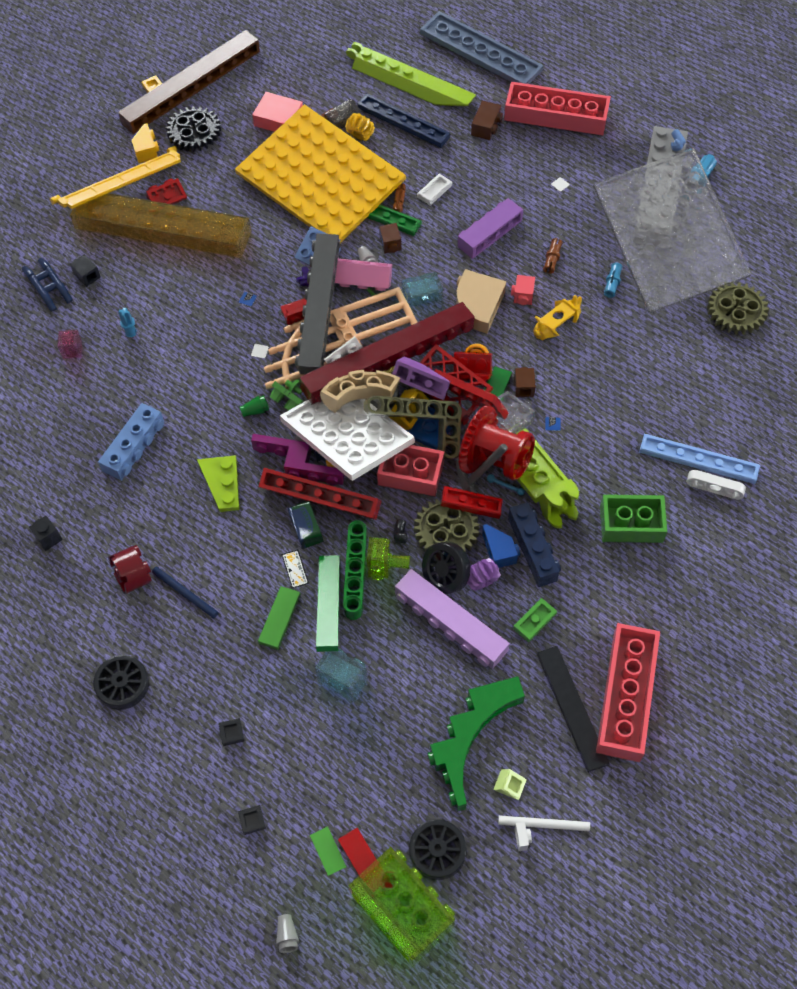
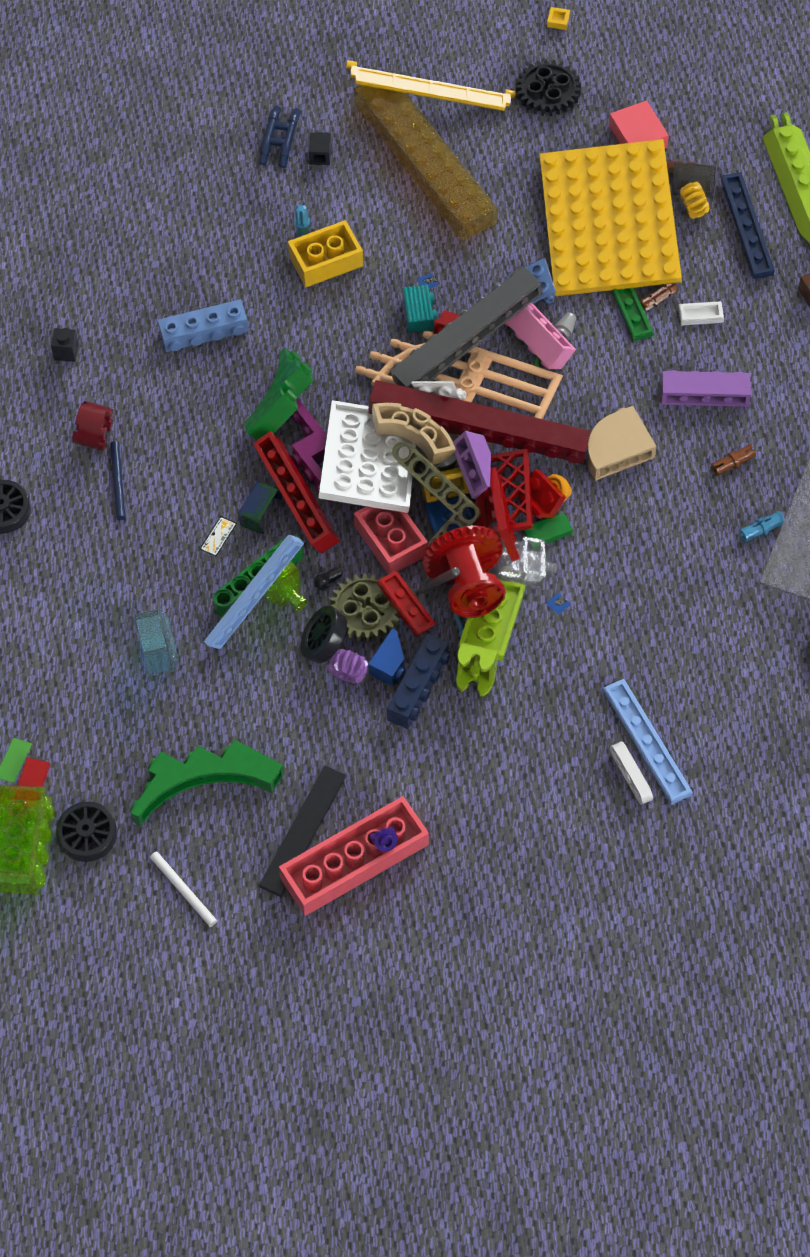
camera: 45 degrees right, 0 degrees up
(70, 344) = (241, 203): clear pink brick -> none
(144, 145) = (489, 70): yellow slope -> none
(165, 330) = (325, 253): none -> yellow brick
(169, 192) = (458, 131): red bracket -> none
(189, 81) = (596, 39): brick -> none
(222, 480) = (231, 425): lime wing -> none
(231, 732) = (37, 613): black plate -> none
(245, 442) = (280, 399): none -> green arch
(255, 406) = (329, 378): green cone -> none
(259, 351) = (387, 334): white sticker -> none
(264, 318) = (418, 308): none -> teal brick
(279, 392) = (363, 384): bright green hips -> none
(279, 618) = (164, 562): bright green tile -> none
(328, 604) = (203, 579): tile -> none
(377, 579) = (254, 592): none -> light blue tile
(390, 238) = (605, 325): reddish brown brick -> none
(422, 289) = (579, 393): clear light blue brick -> none
(452, 619) = (287, 676): lavender brick -> none
(510, 783) = (192, 839): yellowish green slope -> none
(523, 290) = (668, 468): coral brick -> none
(523, 836) = (154, 880): white plate -> none
(524, 382) = (571, 546): reddish brown brick -> none
(535, 620) = (351, 740): bright green plate -> none
(547, 324) = (653, 515): yellow piece -> none
(633, 518) = (522, 734): bright green brick -> none
(643, 660) = (384, 839): none -> dark purple plate

